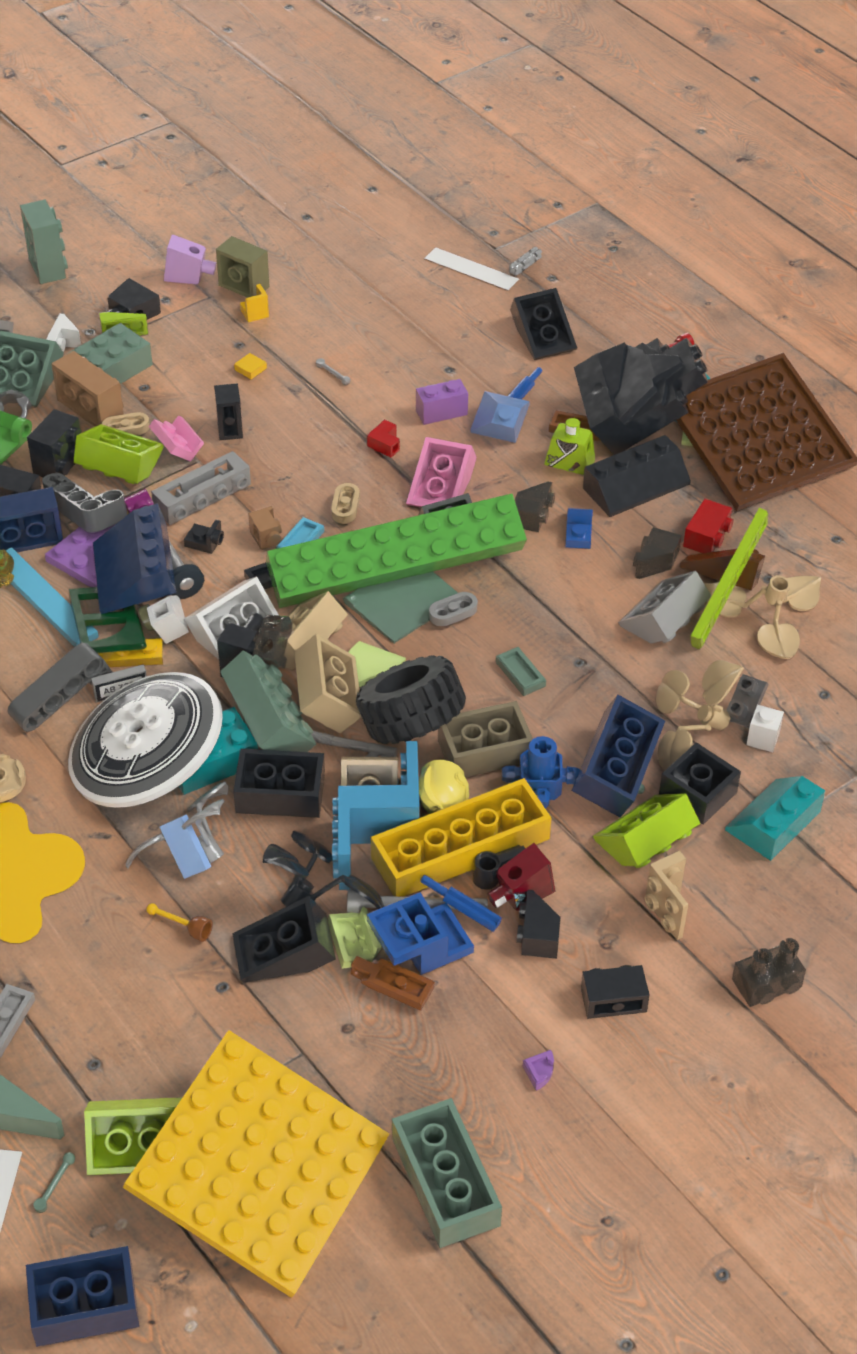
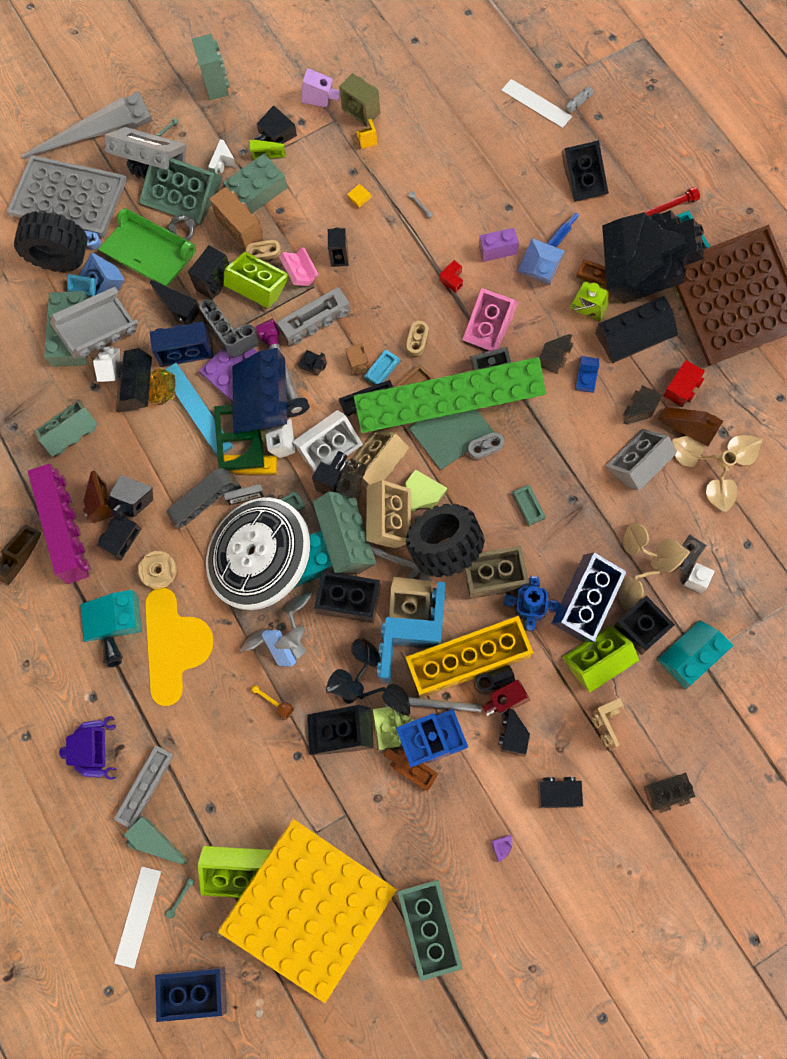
camera: 15 degrees right, 25 degrees up
(442, 785) = (460, 616): light yellow helmet -> none
(465, 904) = (466, 712): blue axle -> none
(729, 579) = (693, 444): lime tile -> none

